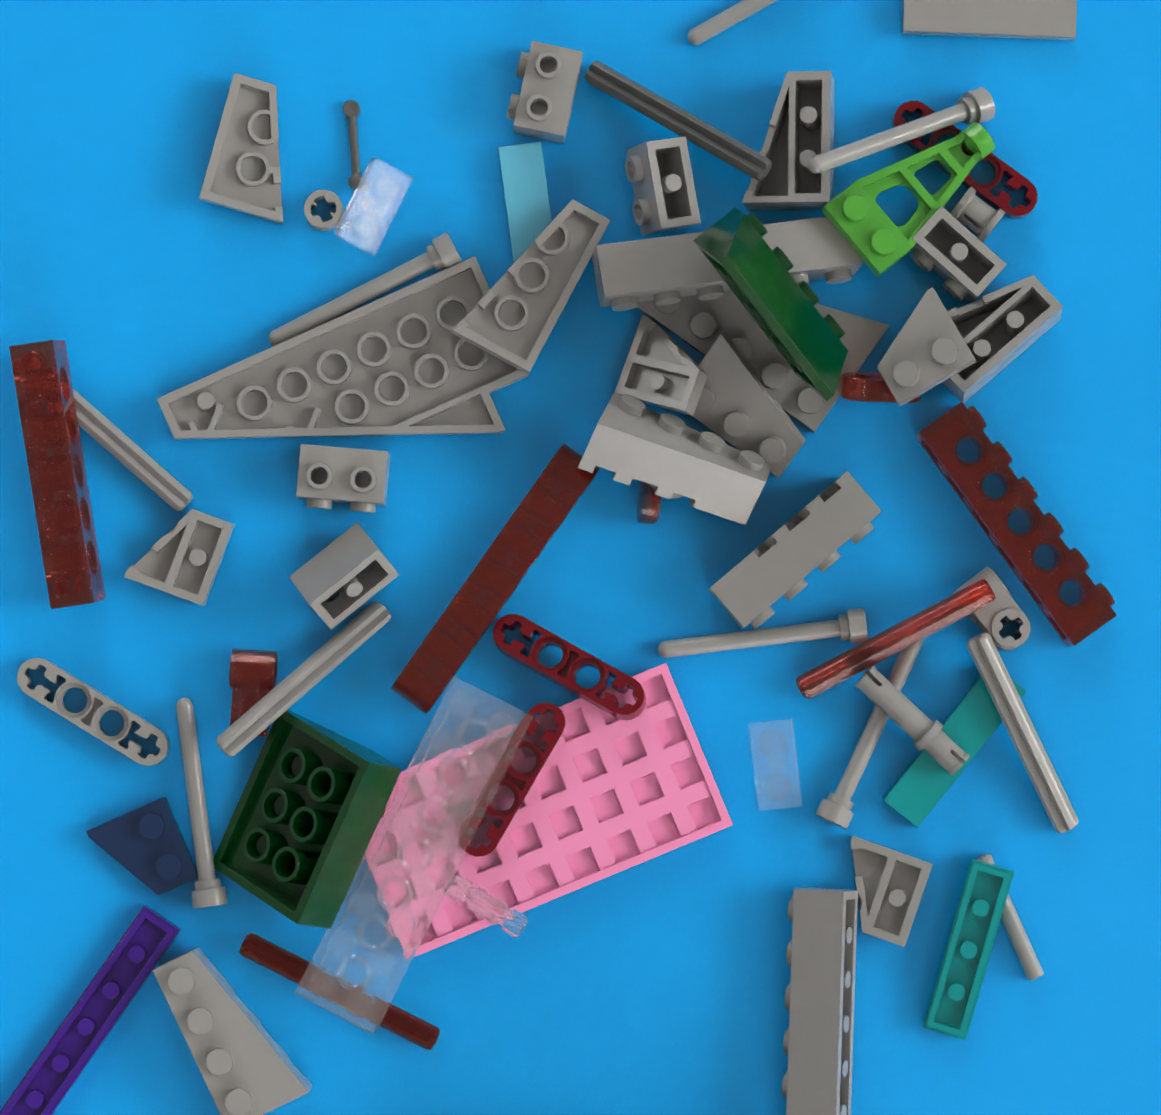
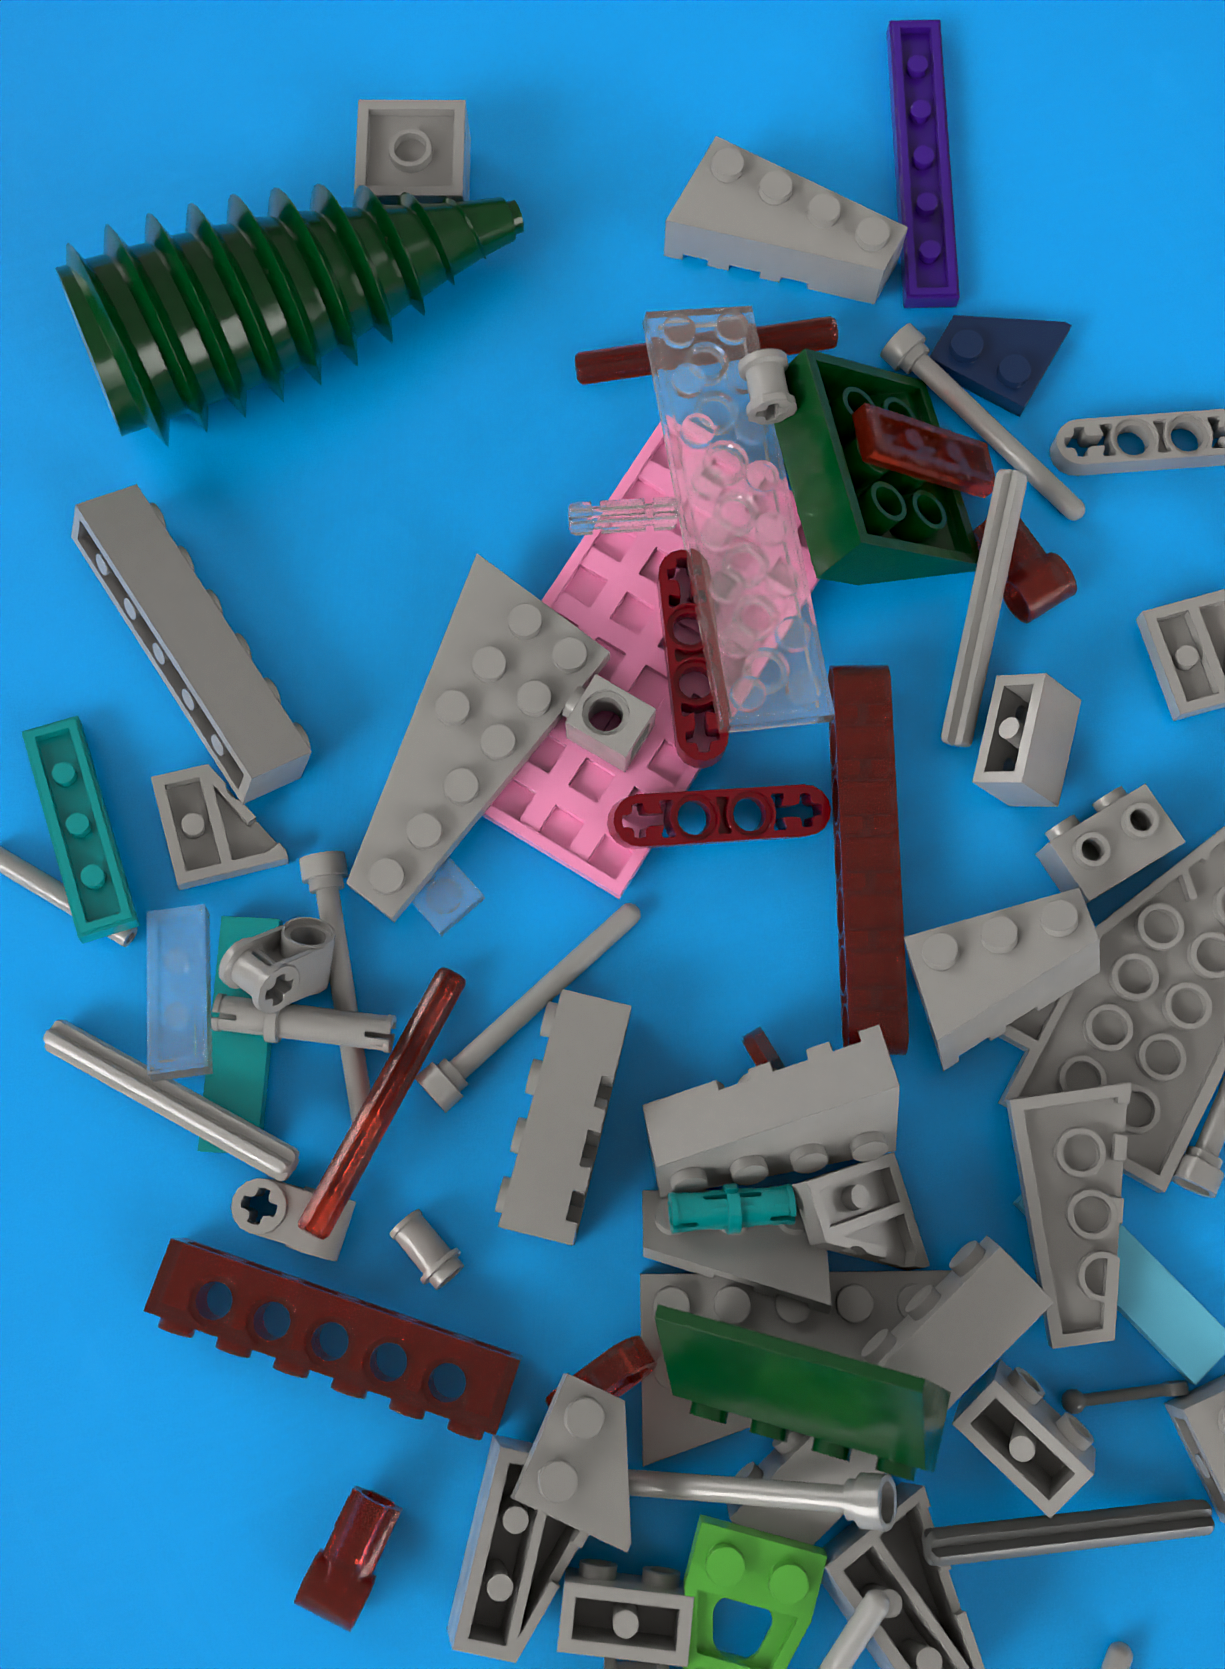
camera: 150 degrees right, 10 degrees down
(263, 807) = (923, 451): none -> clear red tile
(338, 917) = (767, 386): none -> light grey bush
(475, 451) = (999, 967): none -> light grey wedge
(583, 758) = (613, 746): none -> light grey brick
(615, 182) = (1074, 1401): none -> dark grey hinge
(664, 840) = (477, 722): none -> light grey wing
(737, 428) = (731, 1208): none -> teal pin
(784, 220) = (866, 1500): none -> light grey piece
(901, 764) = (281, 963): none -> light grey piece
(929, 534) = (427, 1250): none -> light grey pin
(974, 796) = (178, 993): none -> clear tile
(1095, 391) = (344, 1570): none -> clear red piece

